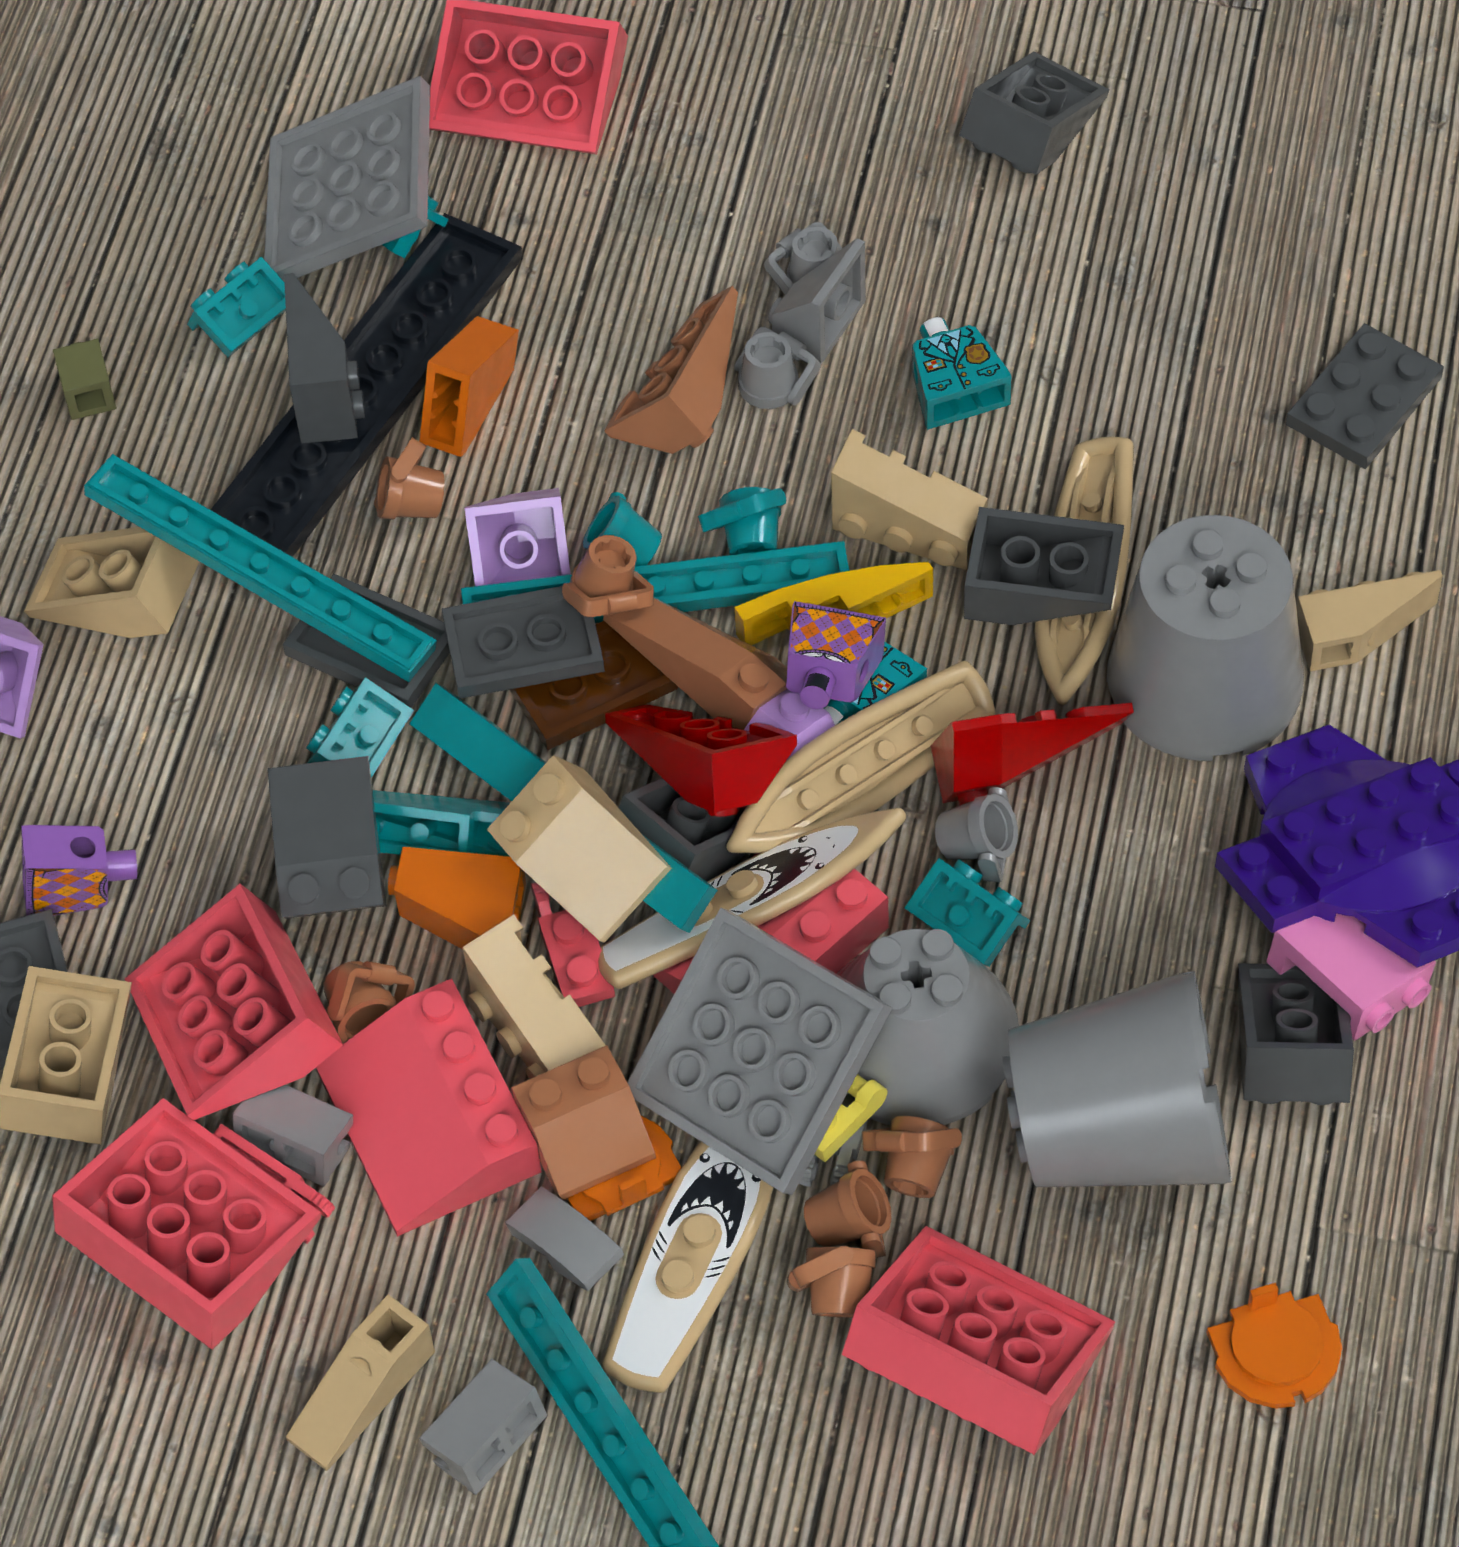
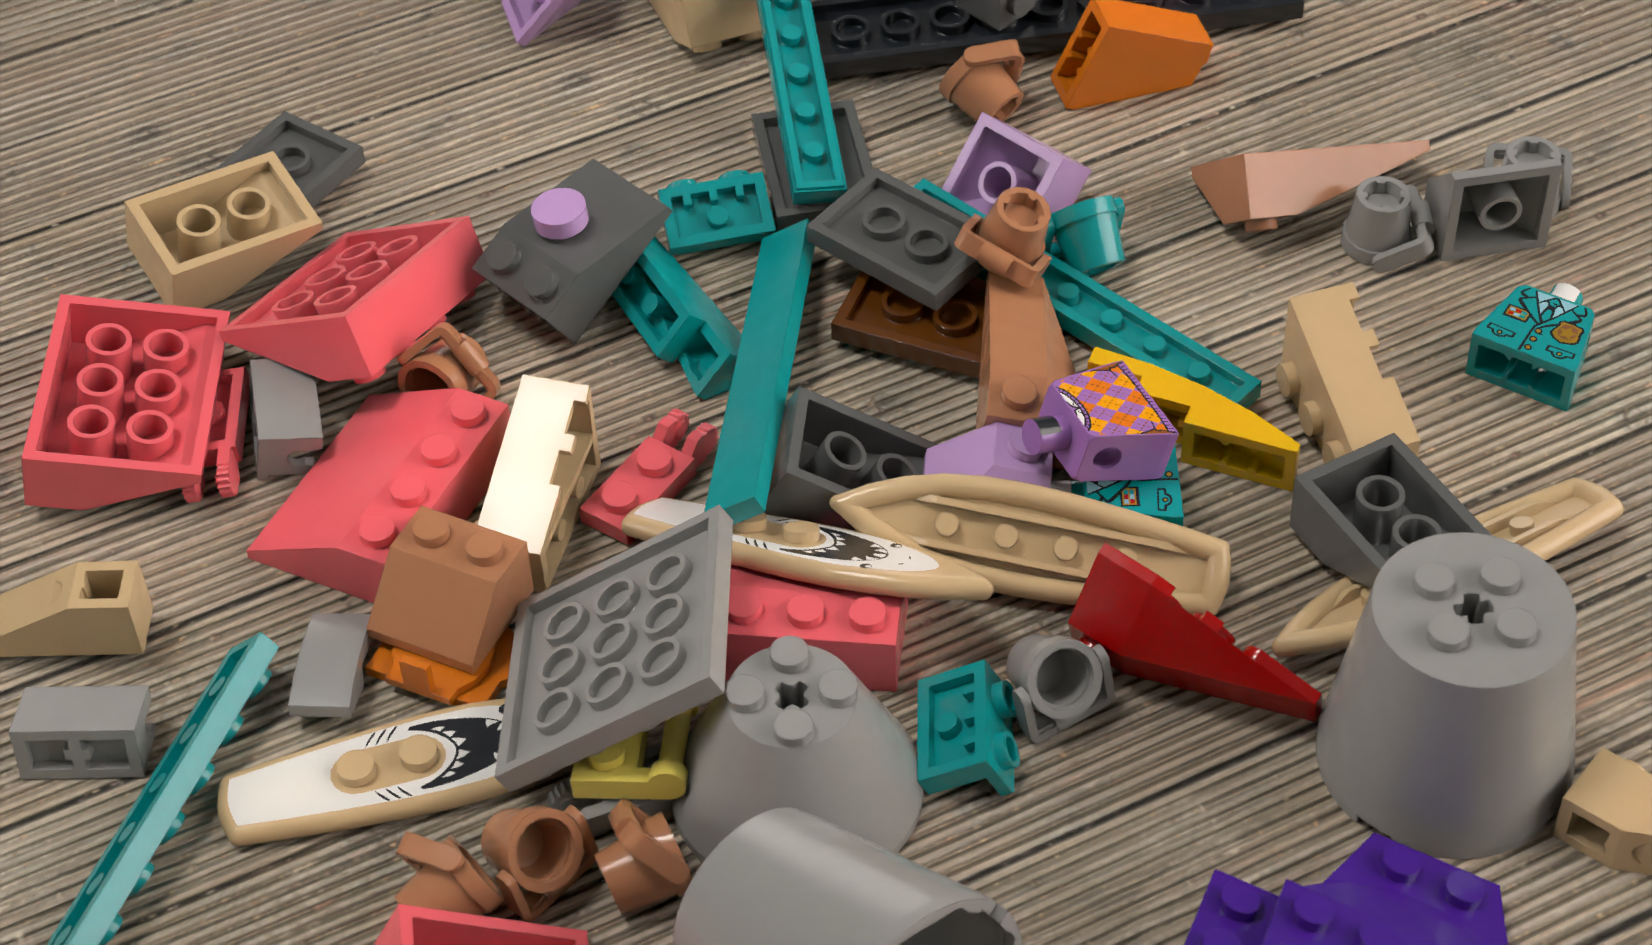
camera: 50 degrees right, 10 degrees down
(70, 868) = (402, 125): medium lavender torso -> none
(313, 824) = (559, 213): none -> lavender tile
(456, 891) = (626, 372): orange slope -> none
(579, 847) = (717, 389): tan slope -> none
(705, 757) = (910, 422): red wedge -> none
(748, 518) = (1205, 302): teal piece -> none

